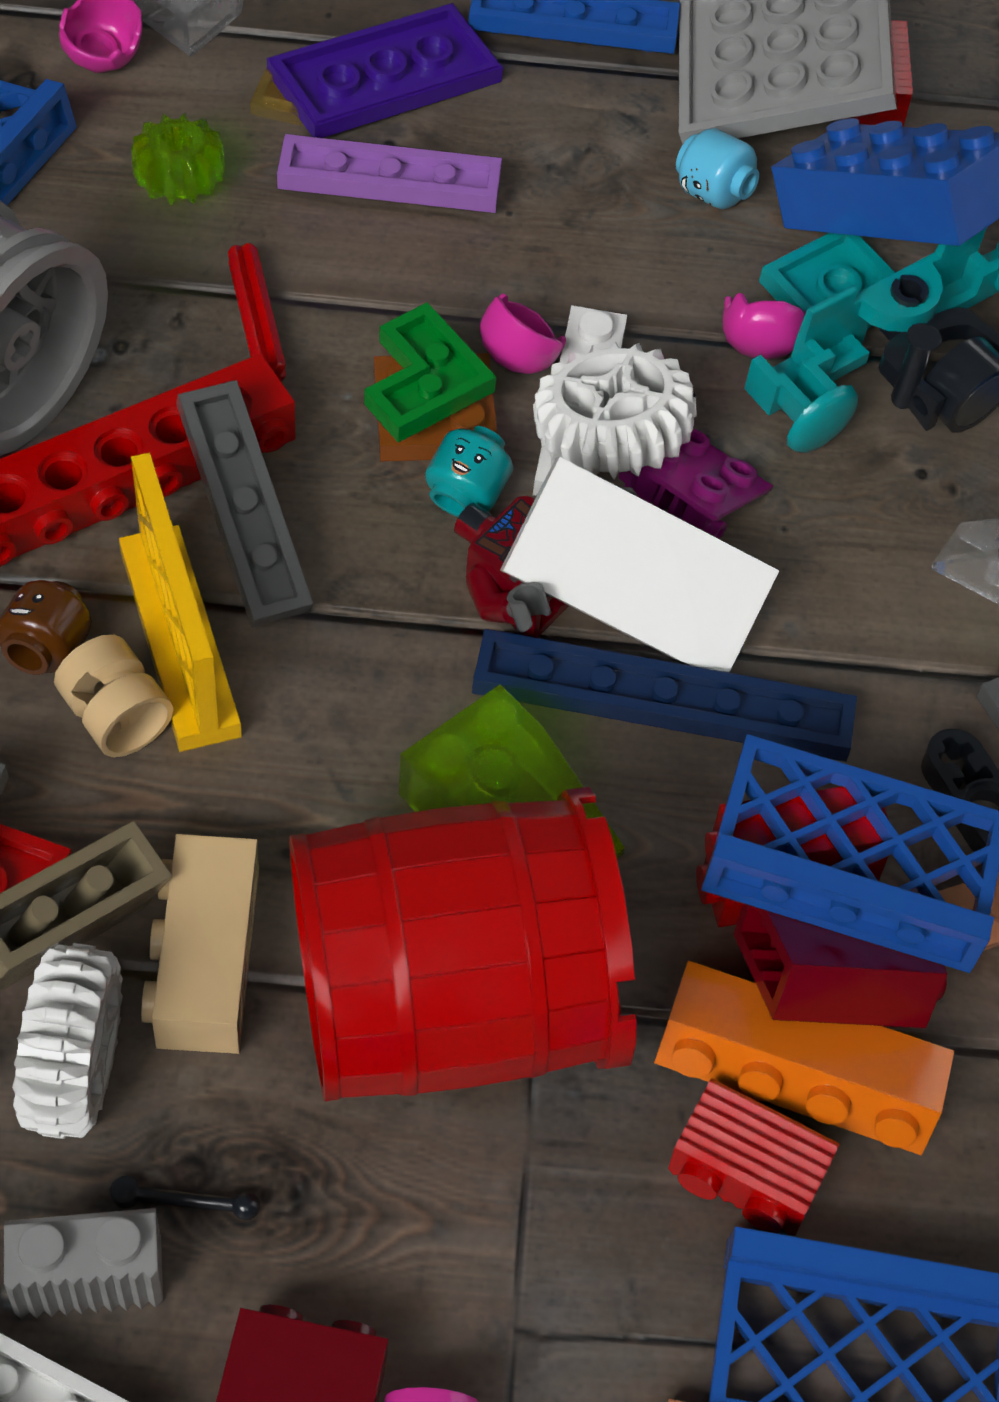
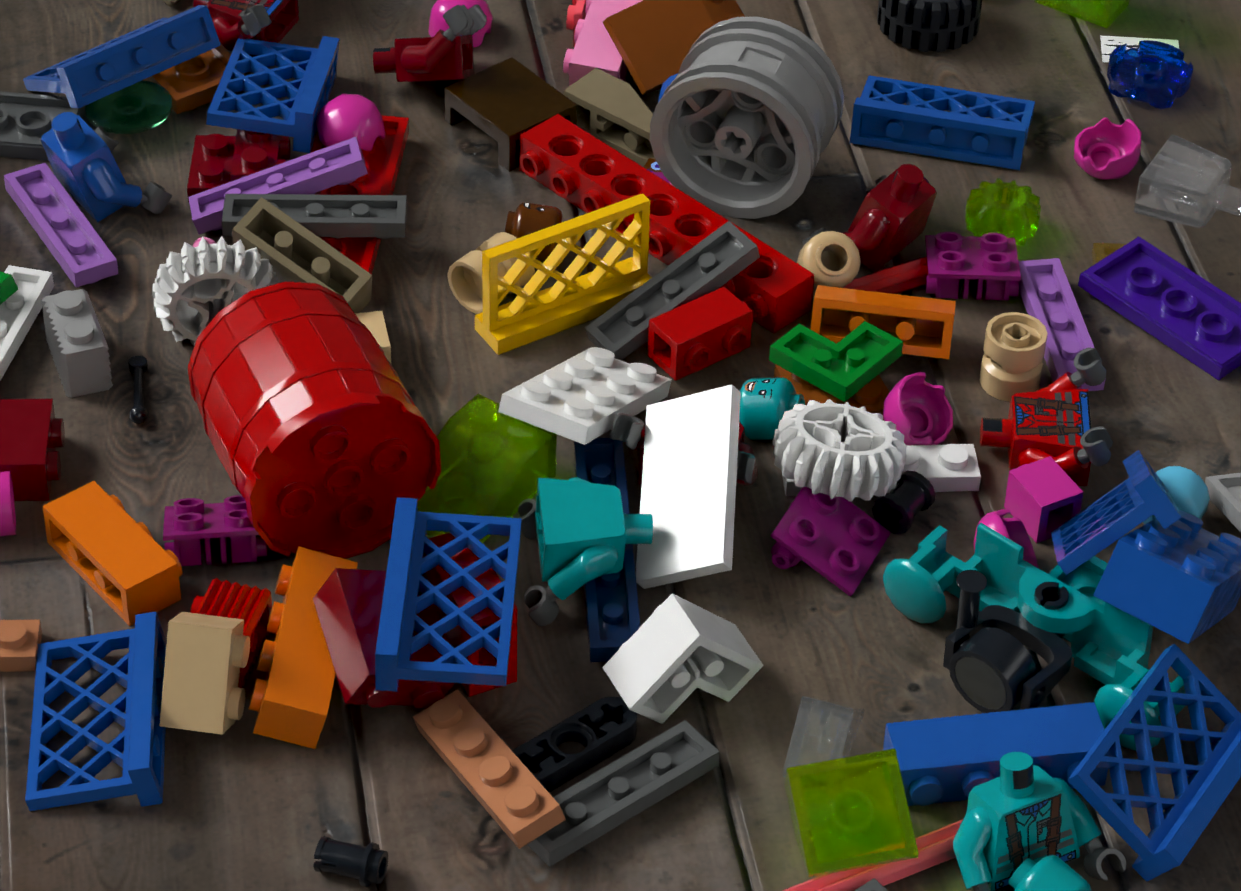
camera: 80 degrees right, 15 degrees down
(168, 257) = (890, 216): none -> dark red torso
(224, 334) = (831, 258): none -> tan head
(260, 211) = (967, 257): none -> magenta hinge
(319, 499) = (700, 333): none -> red brick
(338, 336) = (919, 322): none -> orange brick
(421, 642) = (585, 394): none -> white plate
(452, 222) = (1012, 355): none -> tan wheel
(523, 1141) = (193, 520): none -> magenta hinge
(557, 1277) = (112, 552): none -> orange brick
(581, 231) = (1055, 423): none -> torso
(677, 705) = (578, 538): none -> teal torso
(682, 272) = (1042, 497): none -> dark pink brick
(818, 150) = (1114, 515): none -> blue fence
(866, 1180) = (203, 673): none -> tan brick
(911, 659) = (675, 654): none -> white brick

